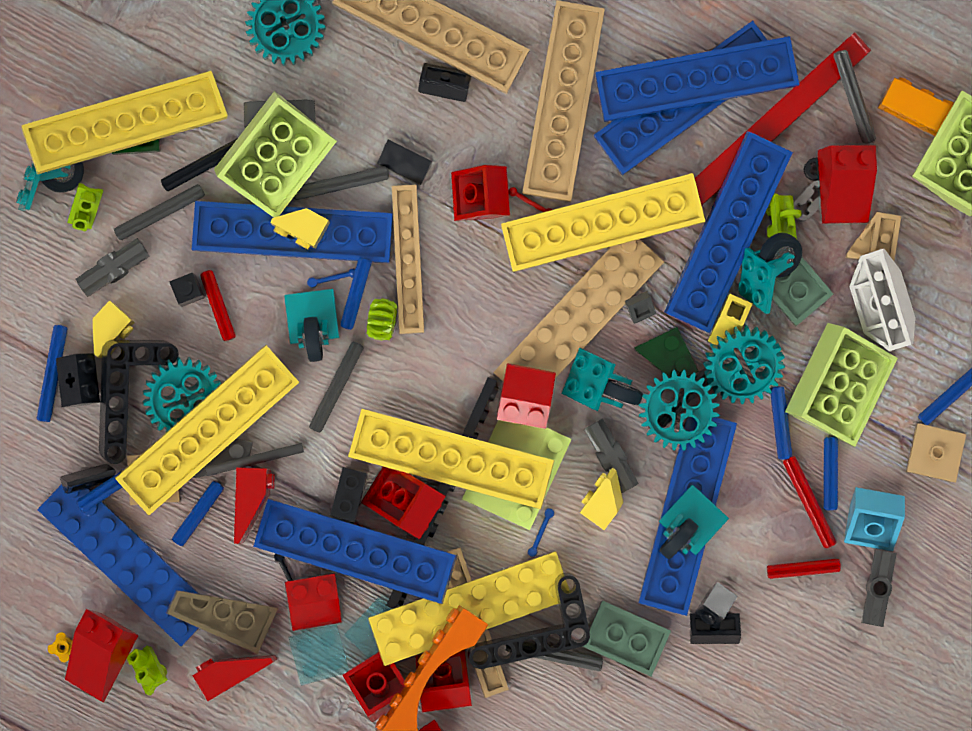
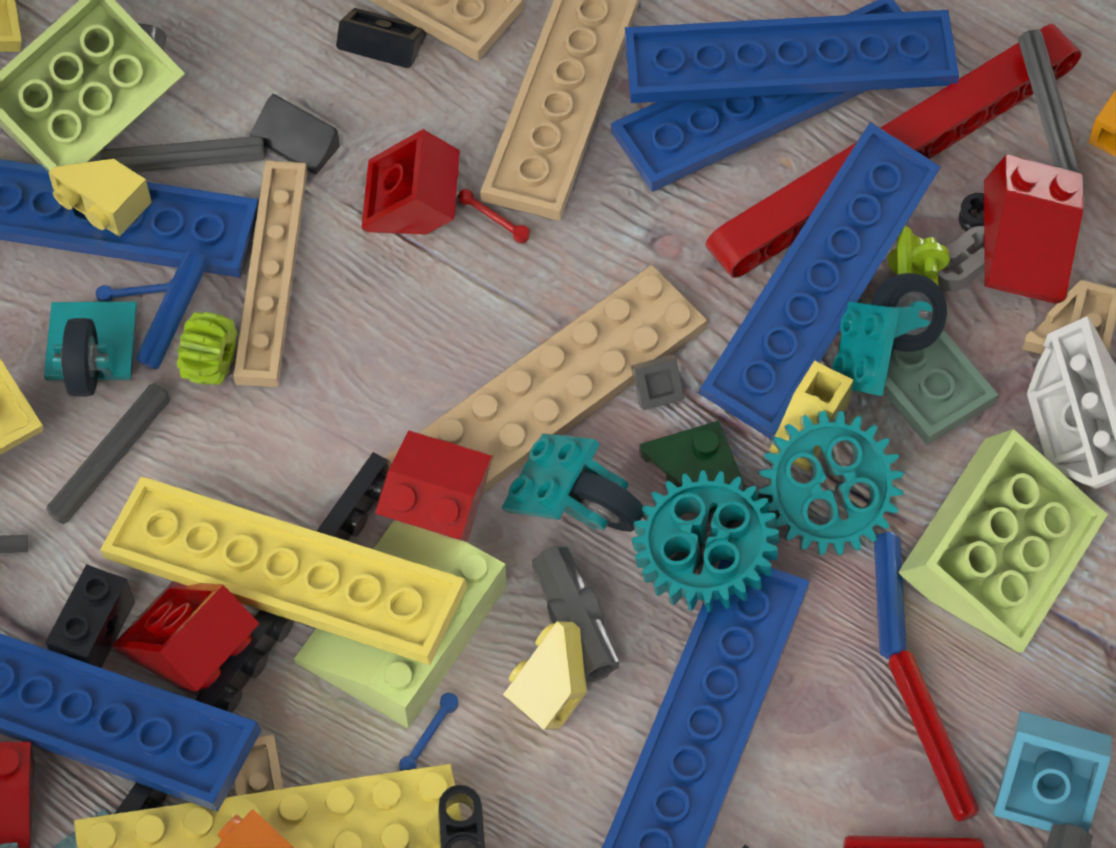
camera: 10 degrees right, 25 degrees down
(603, 222) = (609, 242): light yellow plate -> none
(690, 523) = (706, 732): teal plate -> none
(830, 473) = (975, 691): blue axle -> none

